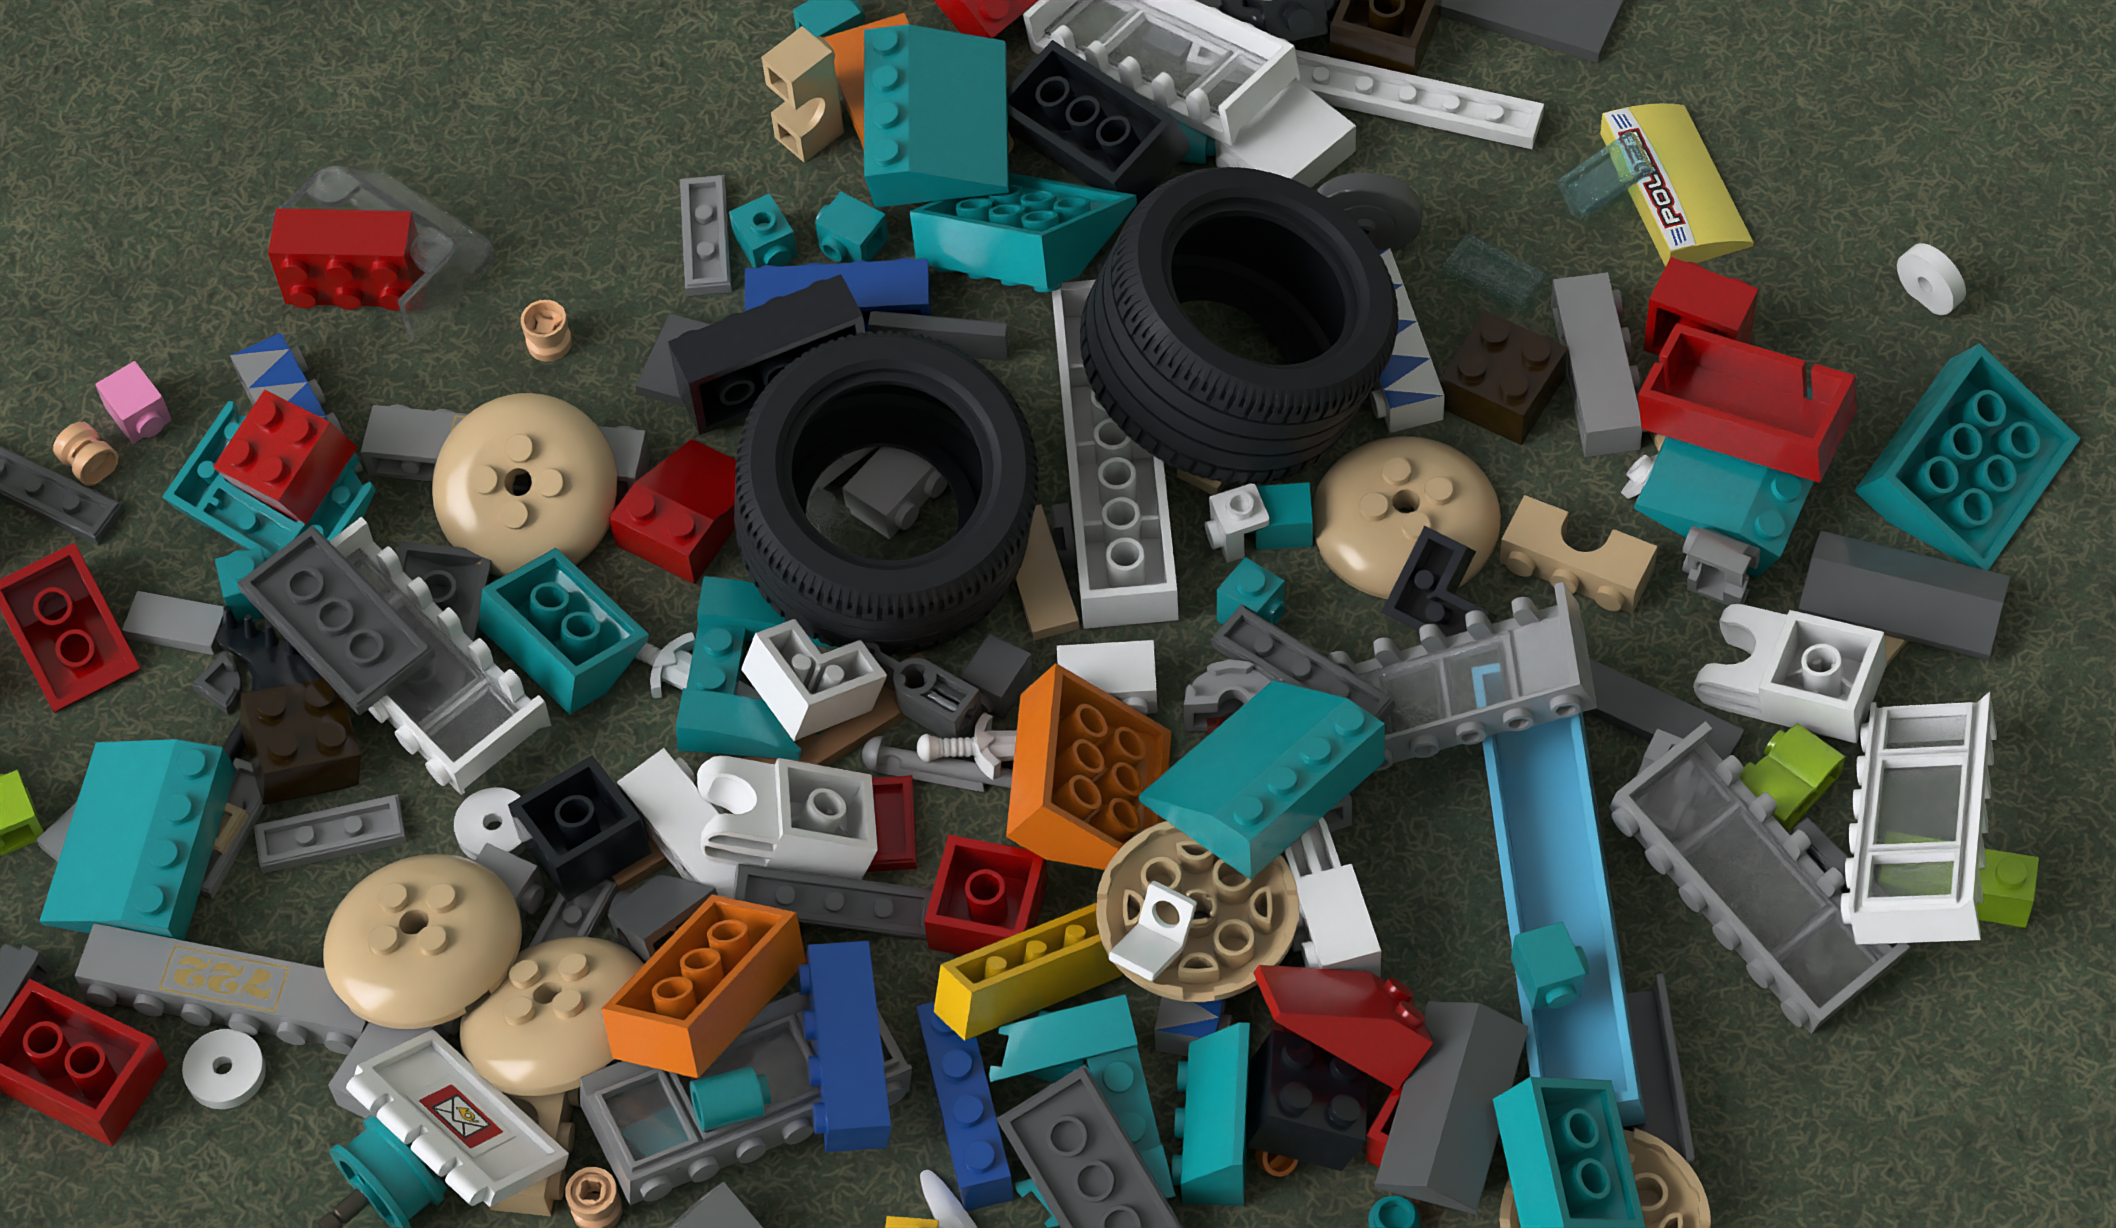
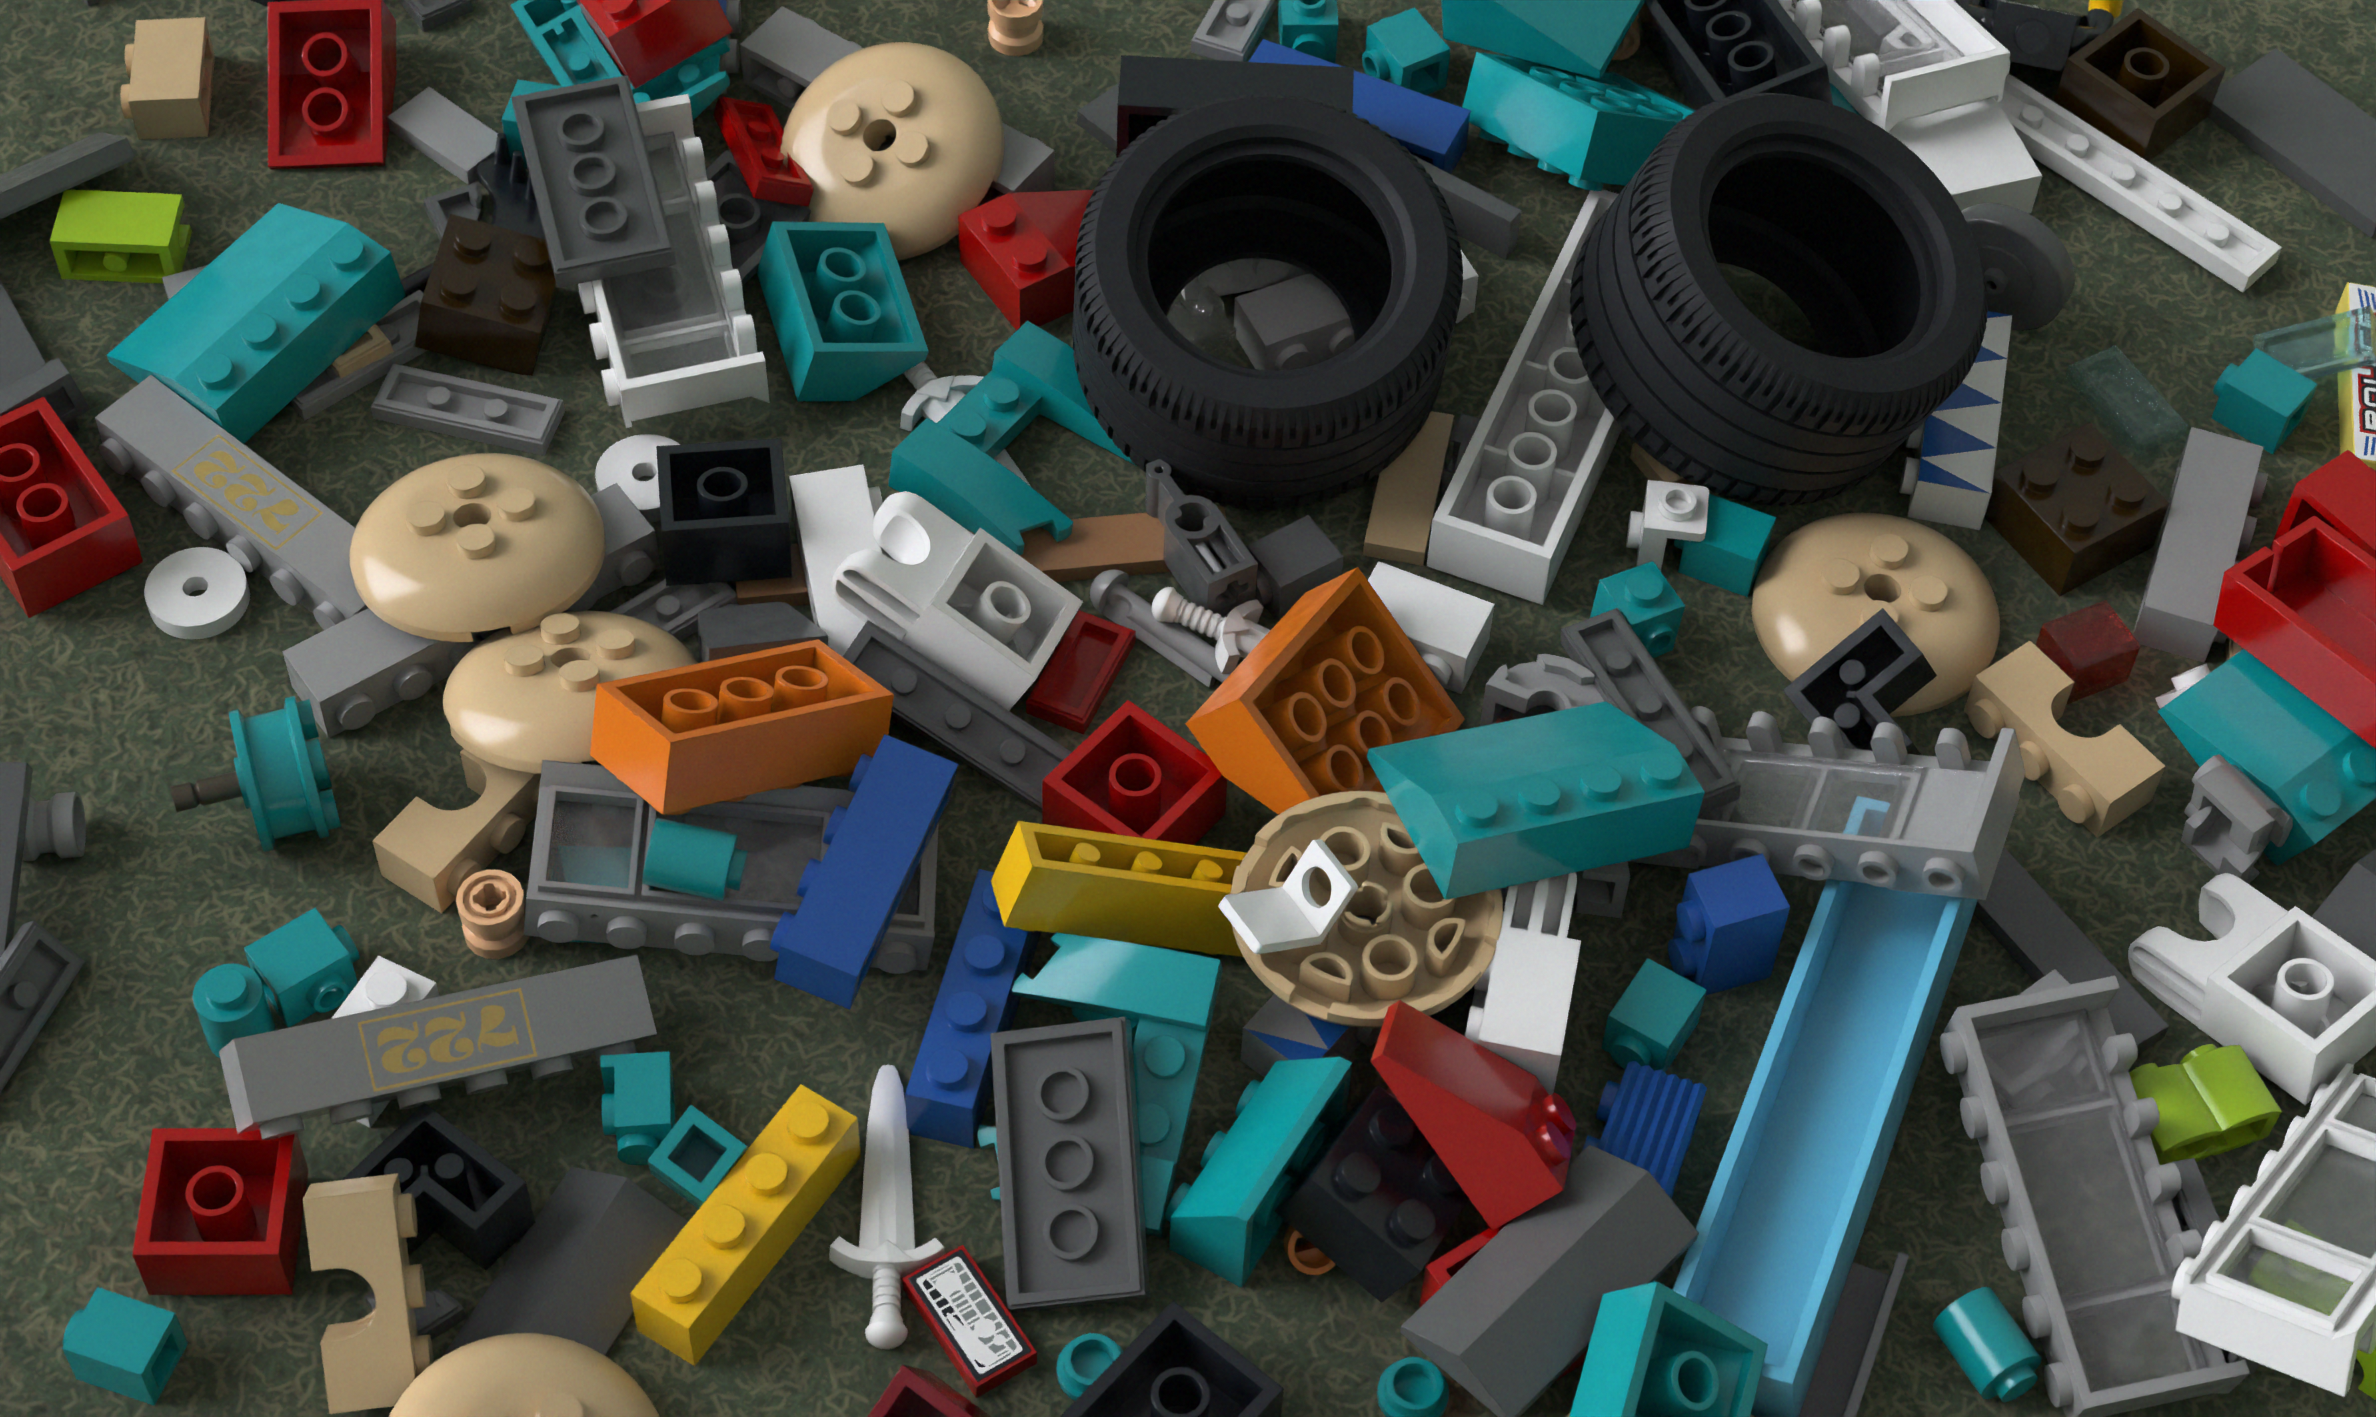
camera: 20 degrees right, 5 degrees down
(419, 526) = (755, 143): none -> red tile
(456, 1120) = (381, 745): white hinge -> none
(808, 687) = (1069, 479): white brick -> none
(1414, 890) = (1653, 1018): none -> teal brick
(1433, 801) = (1729, 925): none -> blue brick
(1449, 965) = (1650, 1121): none -> blue brick
(1549, 966) = (1763, 1172): teal brick -> none
(1563, 479) = (2090, 648): none -> clear red brick
(1586, 231) = (2262, 400): none -> teal brick
(1738, 1007) = (1988, 1345): none -> teal brick

